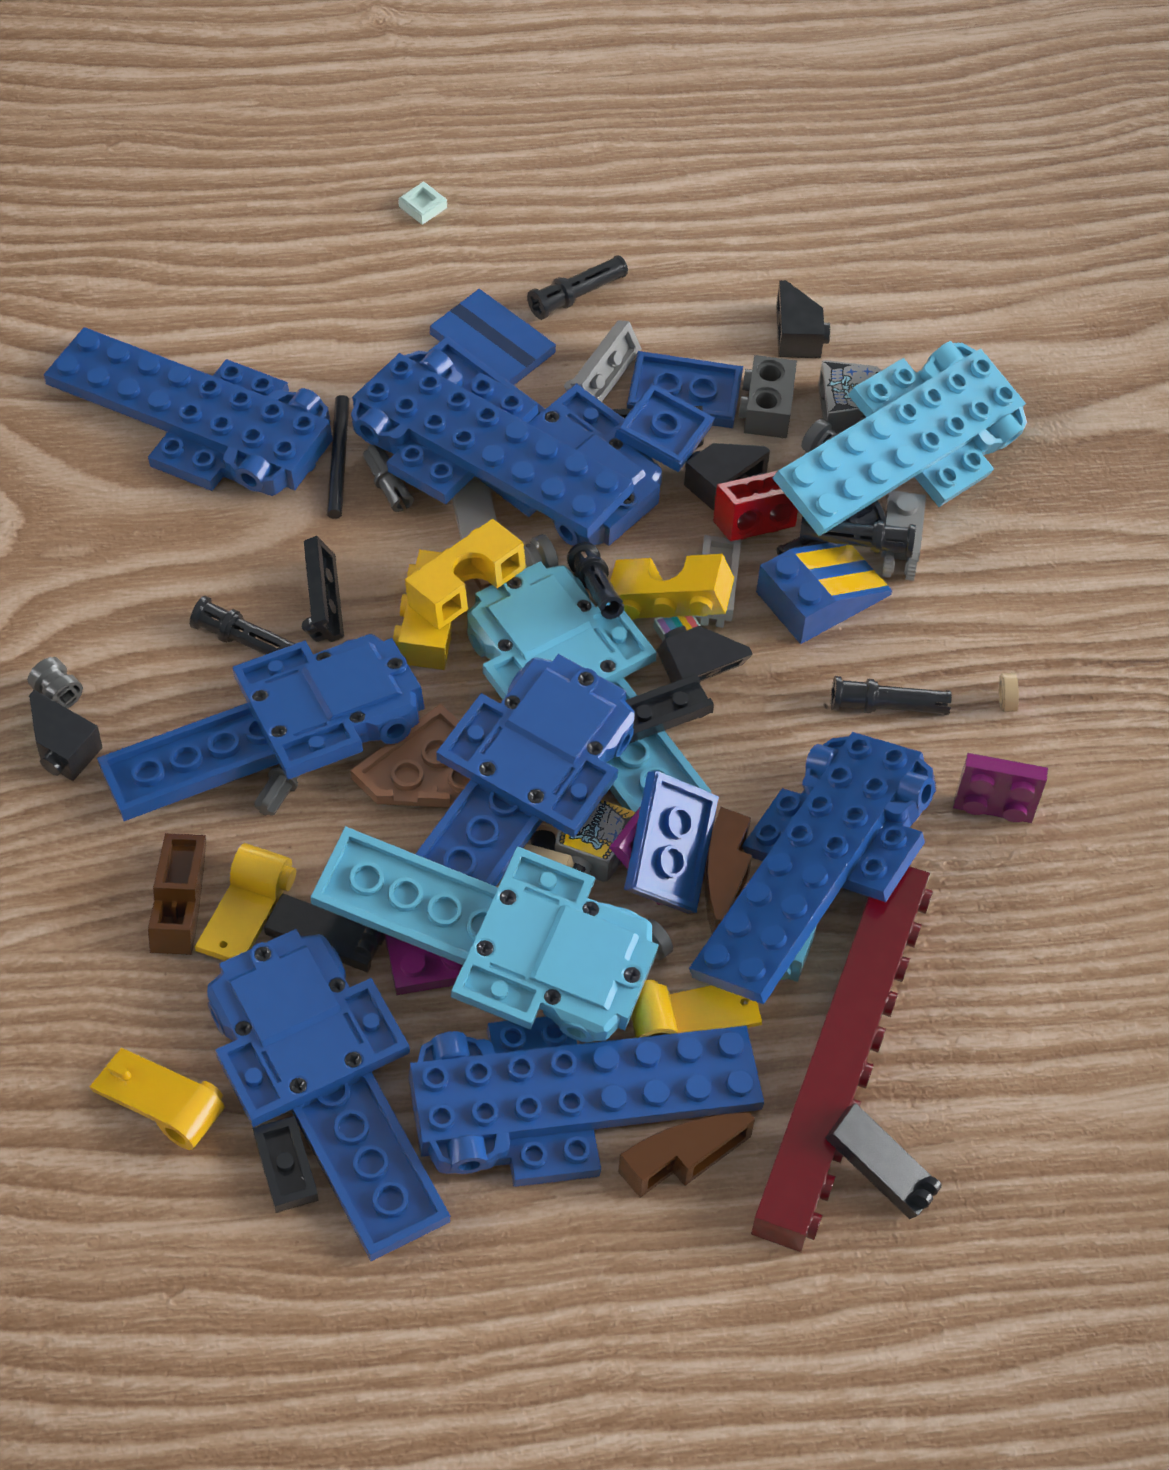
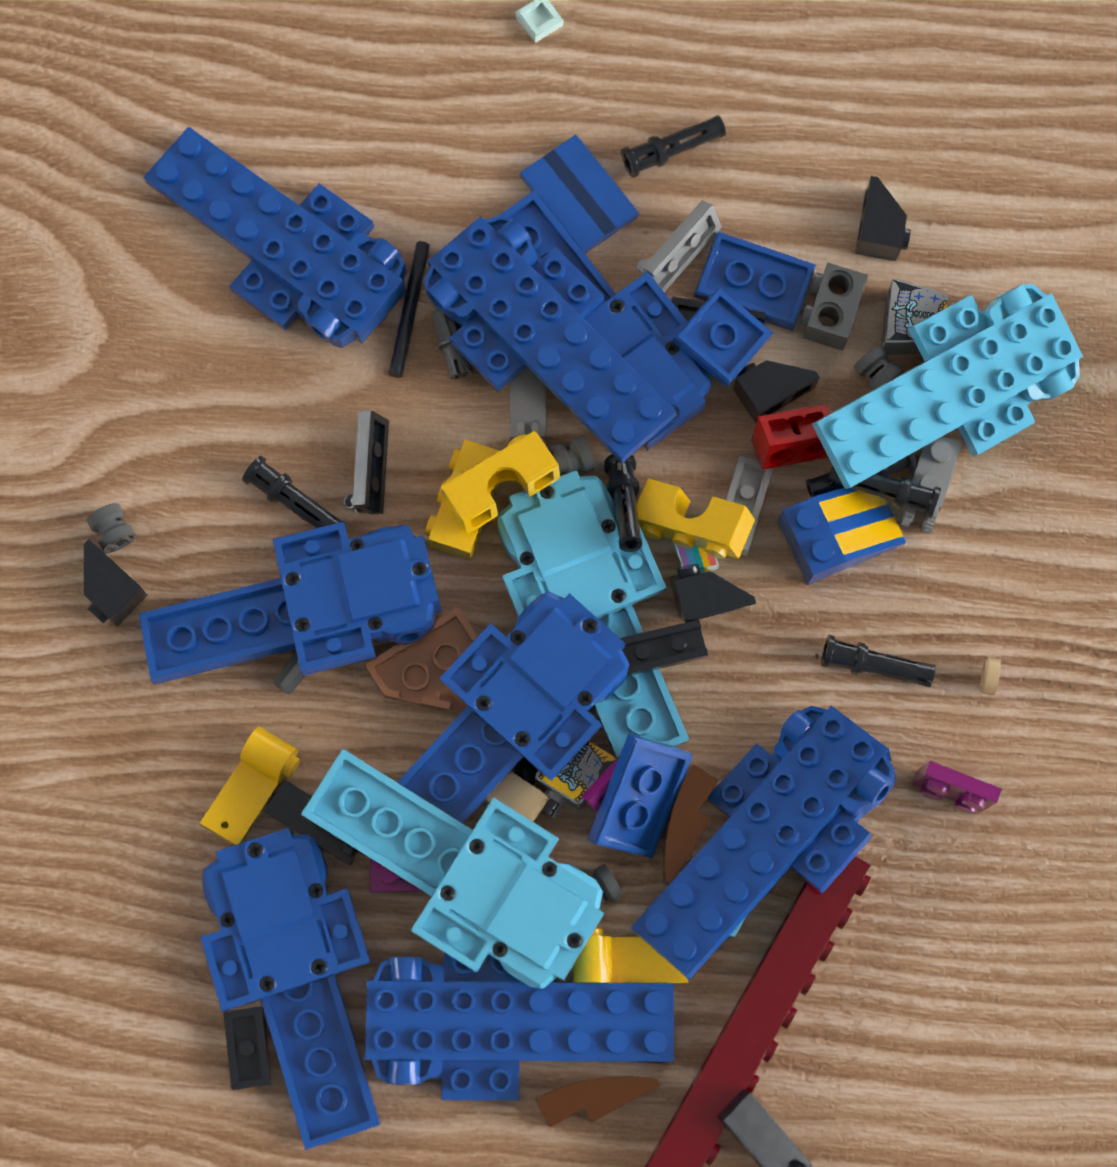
camera: 10 degrees right, 20 degrees up
(176, 1103) = (148, 964): yellow door -> none
(177, 894) = (192, 764): reddish brown slope -> none

